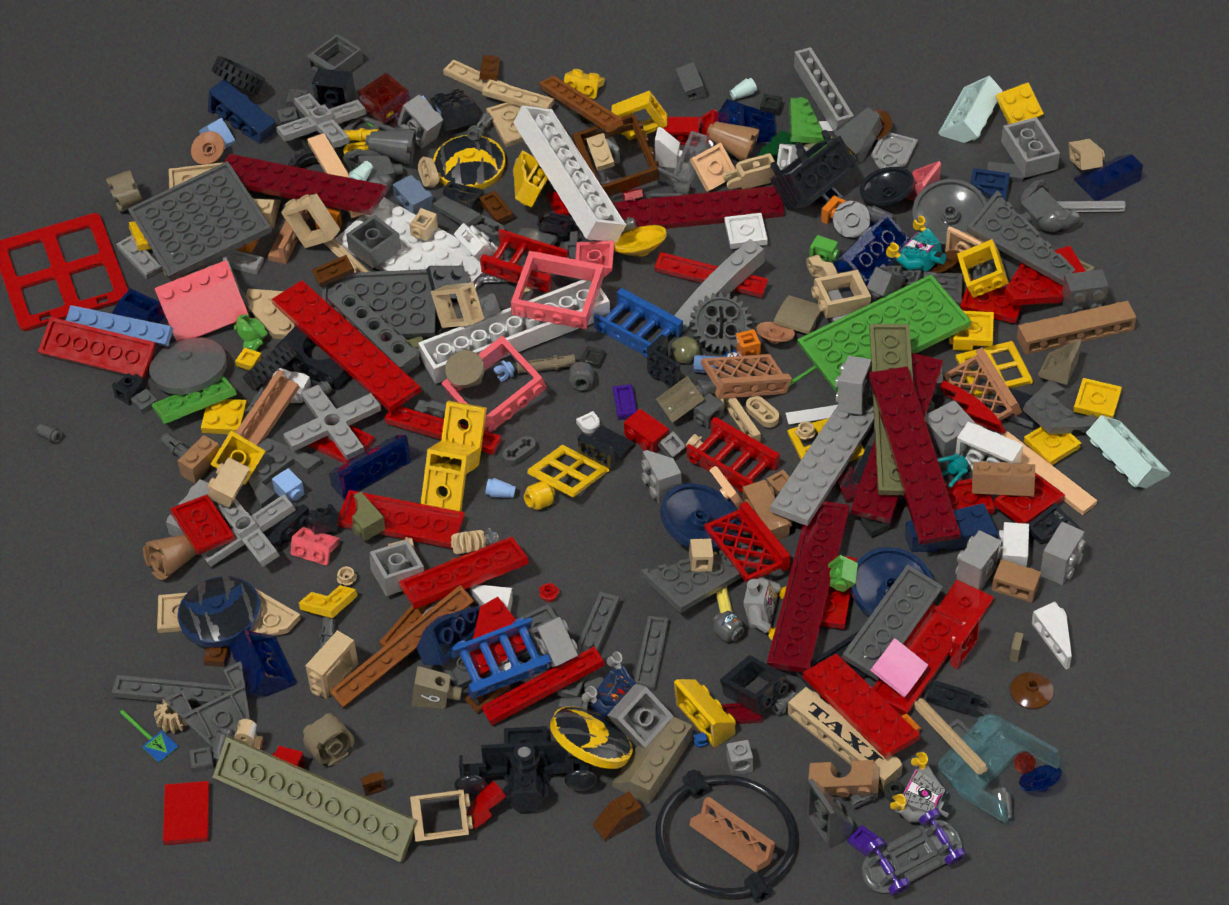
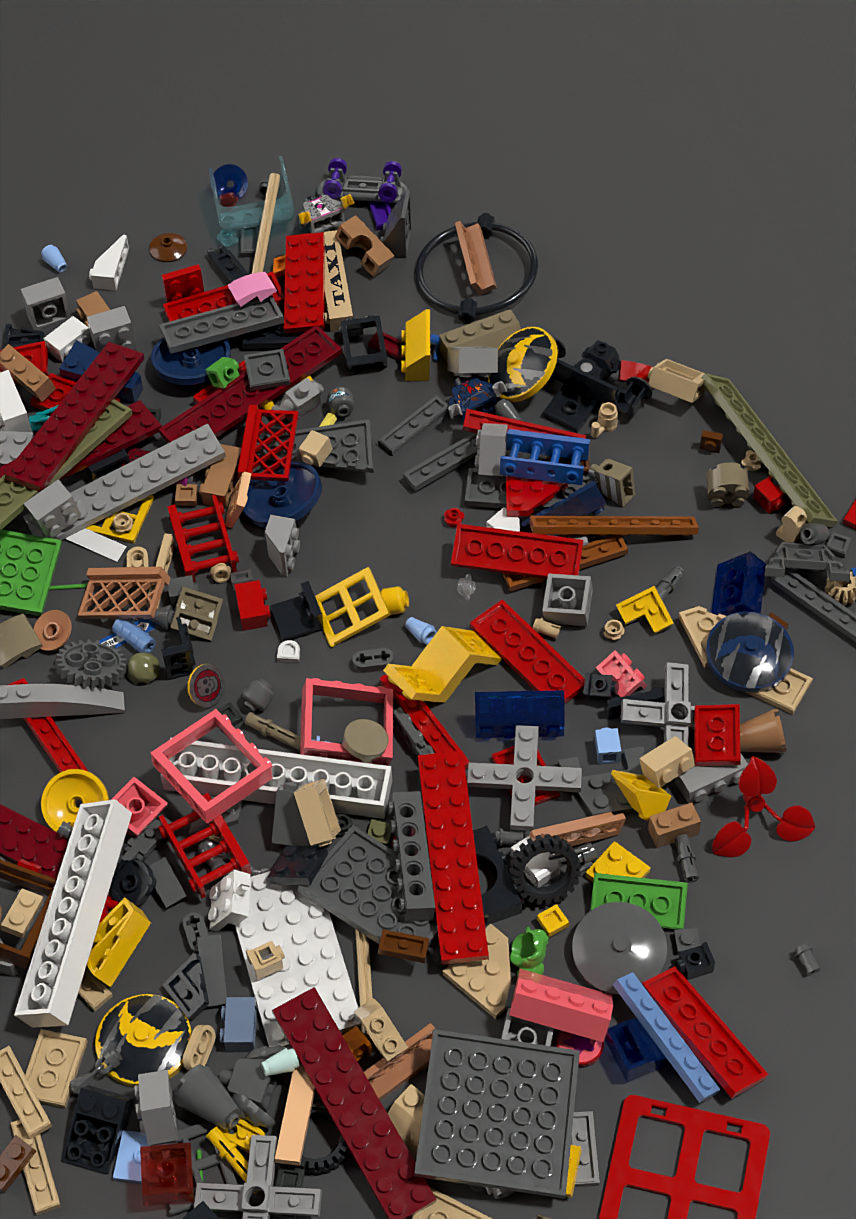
camera: 145 degrees left, 5 degrees up
(147, 505) = (753, 782): none -> red plant
(331, 664) = (671, 555): tan window -> none
(367, 519) = (564, 654): olive arch -> none
(373, 241) = (334, 962): dark grey brick -> none
(468, 541) = (494, 581): tan gear -> none
(484, 740) = (606, 420): none -> tan piece
(496, 207) = (169, 951): reddish brown plate -> none
(618, 816) = (544, 317): reddish brown slope -> none
(623, 357) = (206, 685): none -> shield
(624, 401) = (240, 653): dark purple tile -> none
(639, 309) = (140, 713): blue fence -> none
(739, 757) = (419, 302): light grey brick -> none
(748, 343) = (88, 629): orange brick -> none
(809, 600) = (267, 369): none -> dark grey tile
(965, 600) = (146, 324): red plate -> none
(1016, 647) = (149, 271): dark tan tile -> none
(1112, 610) = (53, 257): none -> light blue cone

